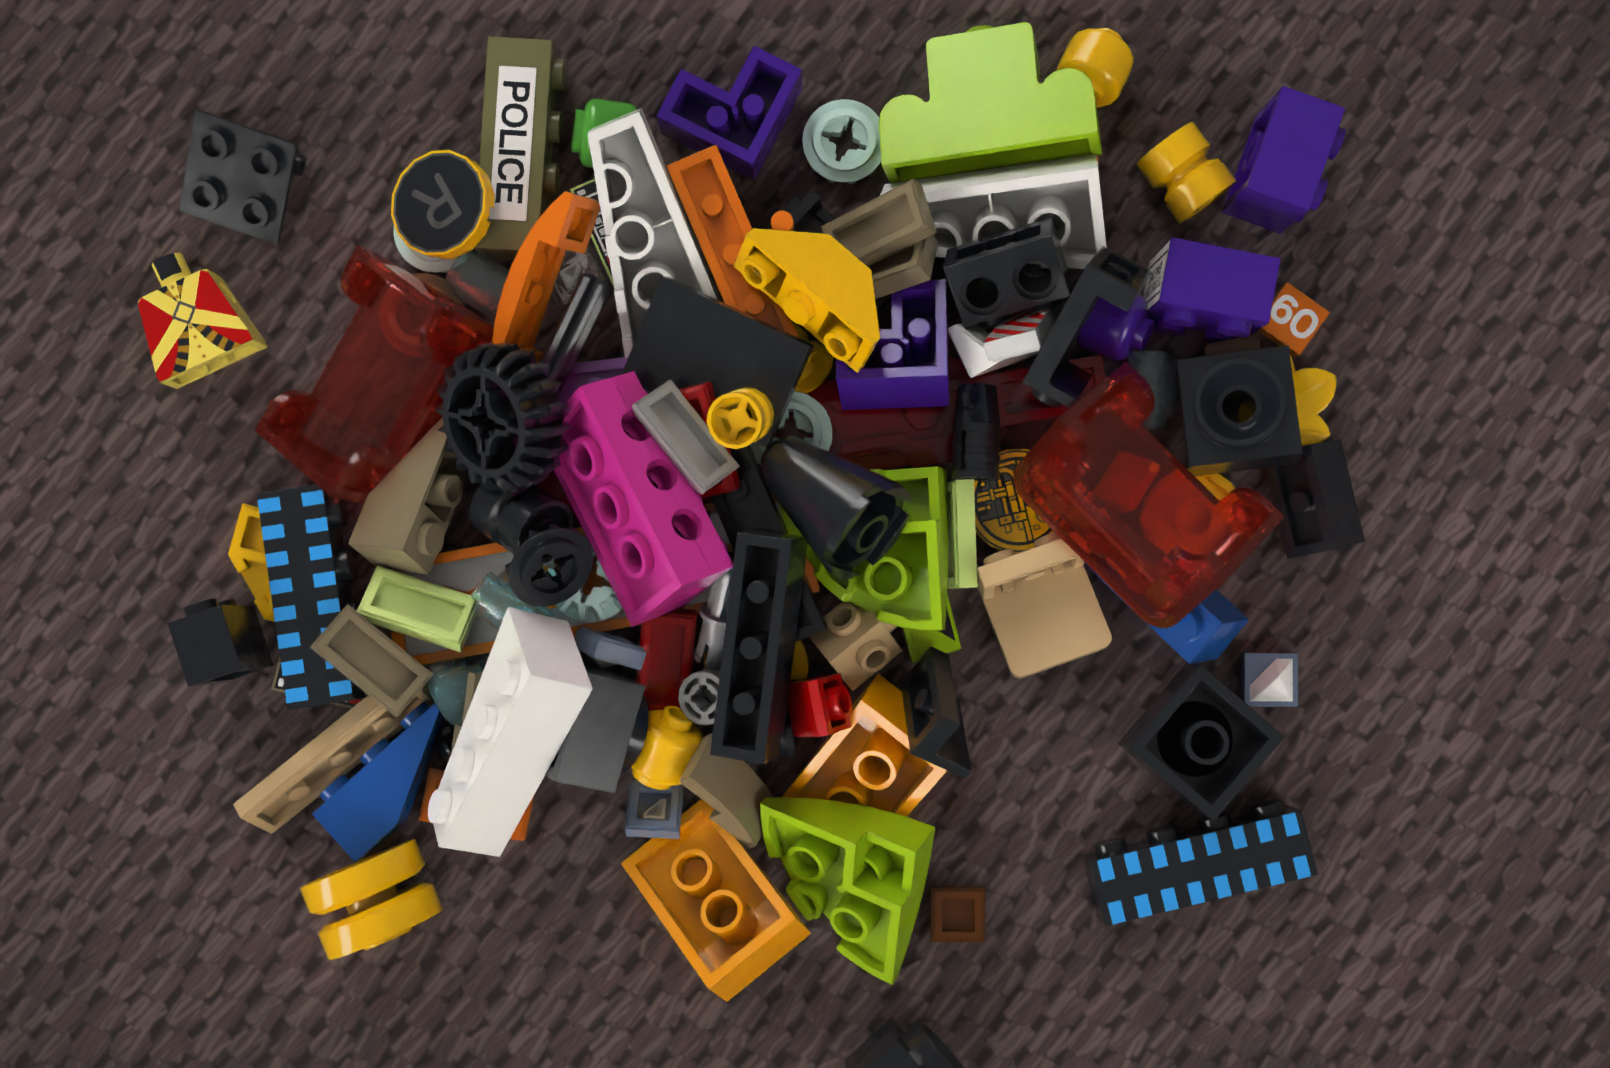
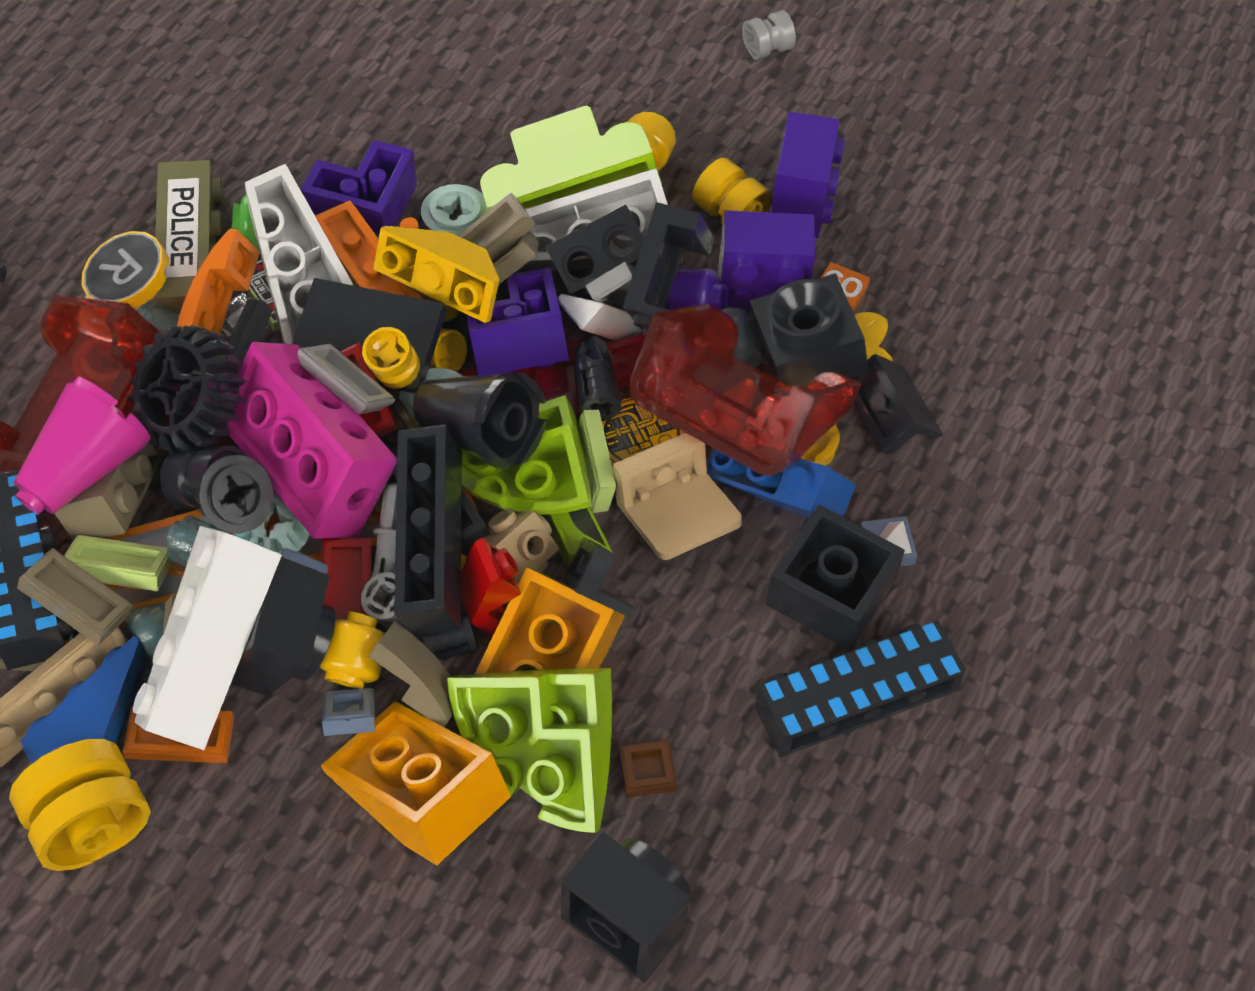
camera: 10 degrees left, 30 degrees down
(377, 491) = (77, 447): none -> dark pink cone

